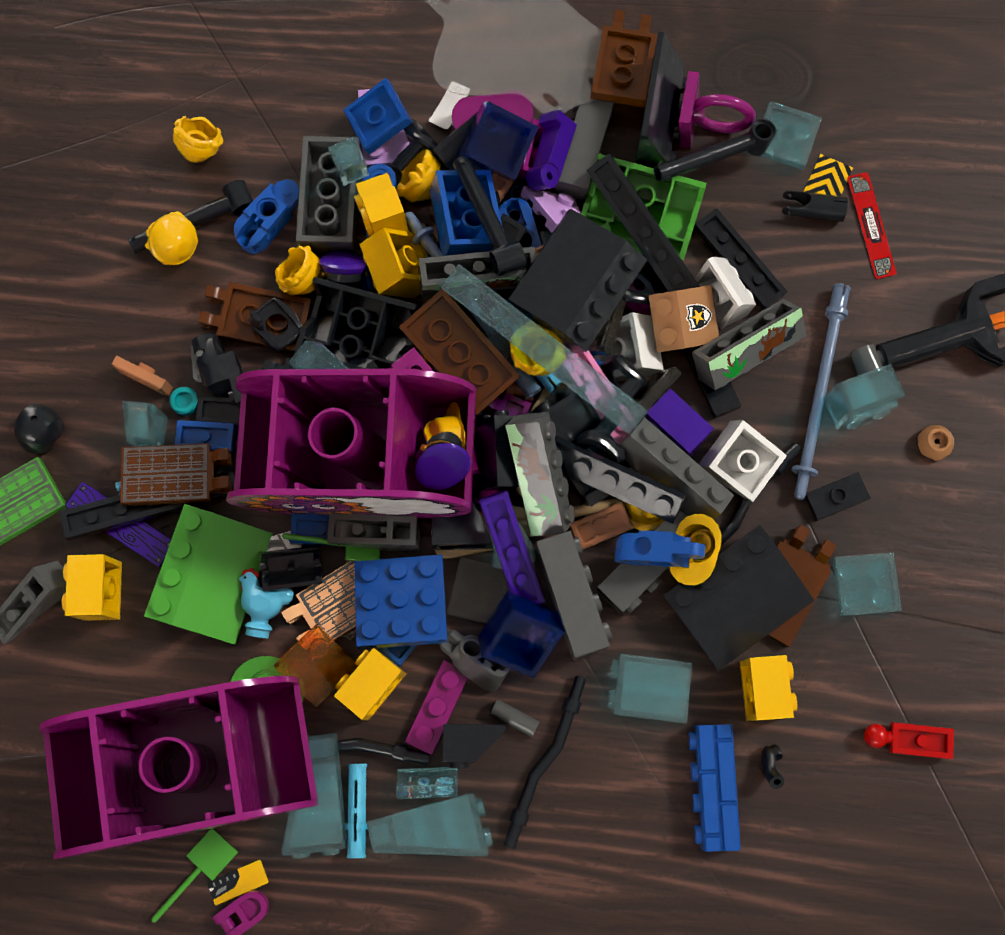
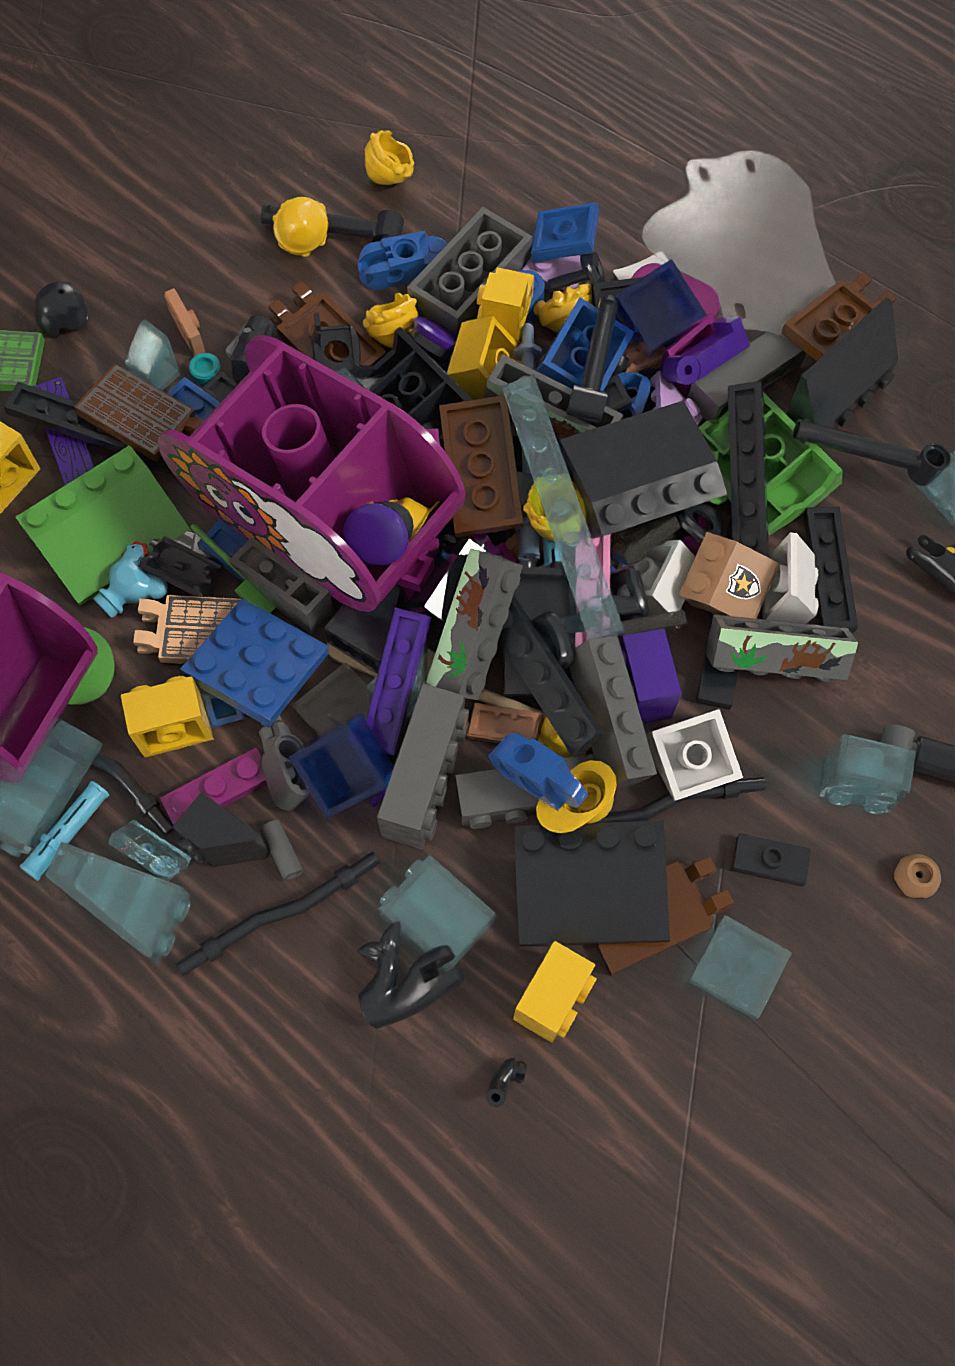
camera: 30 degrees right, 10 degrees down
(317, 663) = (129, 663): clear orange plate -> none
(348, 161) = (505, 244): clear light blue brick -> none
(680, 748) = (384, 1001): none -> black piece
(694, 111) = (877, 401): magenta tile -> none
(716, 788) = (428, 1062): blue brick -> none
(835, 313) = (895, 681): sand blue bar -> none
(912, 739) = (677, 1163): red plate -> none

